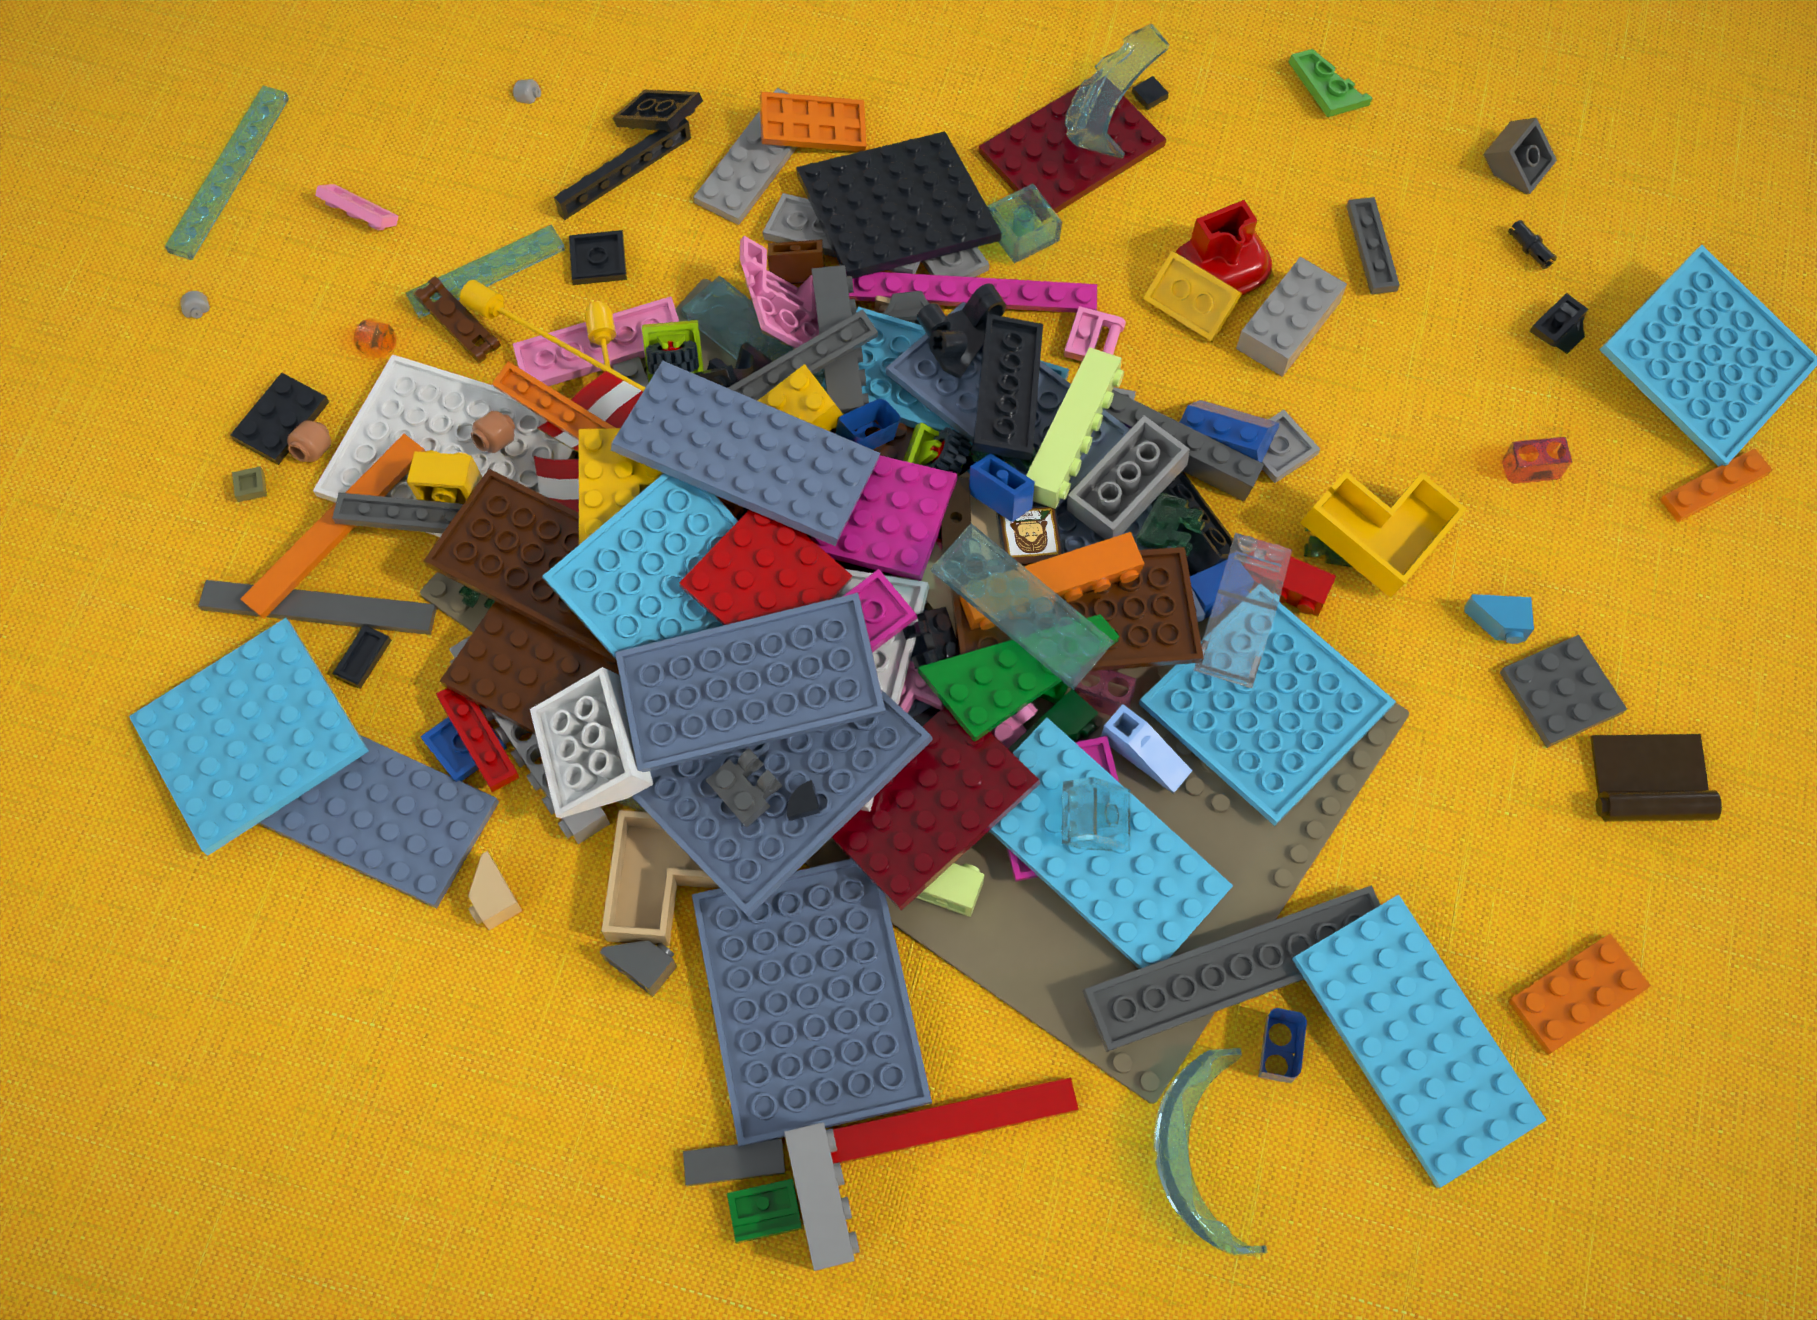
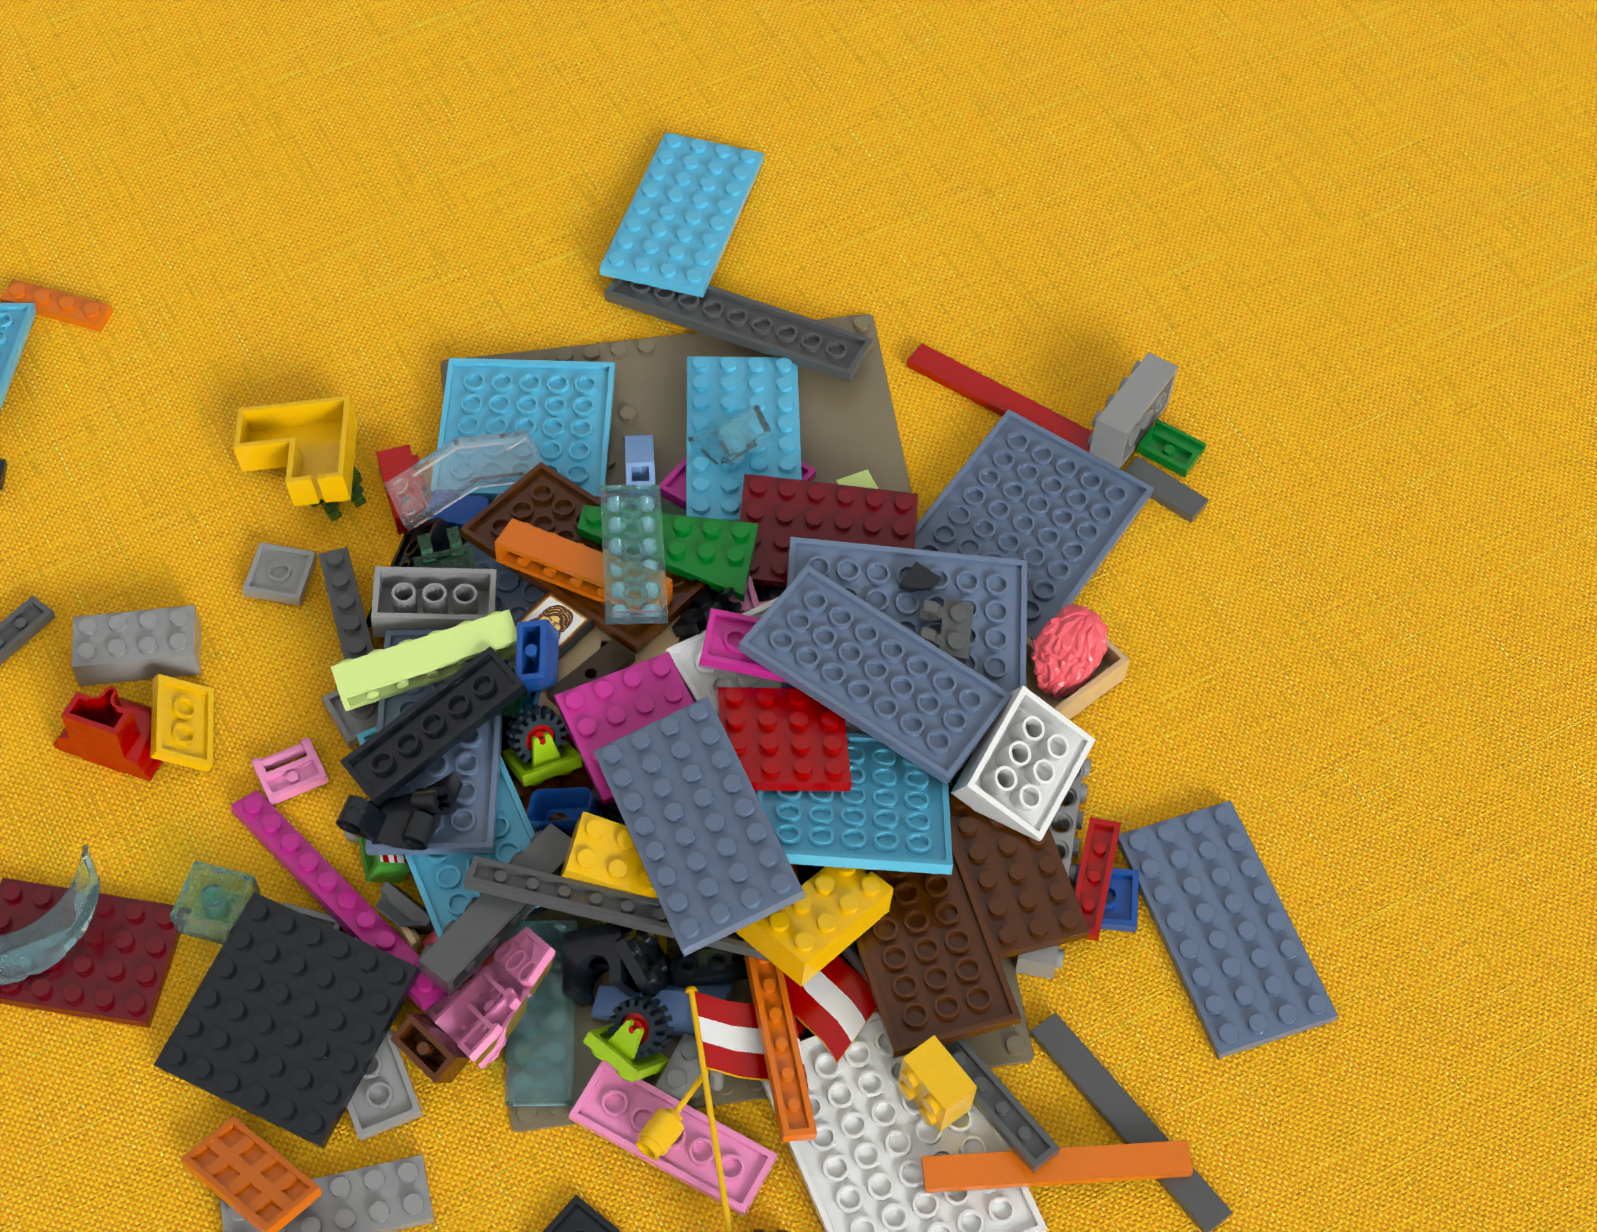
camera: 135 degrees left, 10 degrees down
(247, 736) = (1275, 1049): medium azure plate -> none
(362, 656) = (1127, 1045): black tile -> none
(491, 895) = (1182, 768): tan slope -> none
(493, 432) = (851, 1110): nougat head -> none
(642, 963) = (1122, 635): dark grey slope -> none
(652, 890) = (1069, 650): none -> coral hair
(1172, 1151) = (891, 274): clear light blue windscreen -> none
(1233, 428) = (300, 607): blue slope -> none
(1297, 1024) = (769, 258): blue piece -> none
(1502, 616) = (306, 349): dark azure slope -> none
(1522, 471) = (127, 395): piece -> none
(1563, 691) = (334, 291): dark grey plate -> none
(1579, 994) = (561, 164): orange plate -> none
(1653, 778) = (361, 208): dark brown door -> none

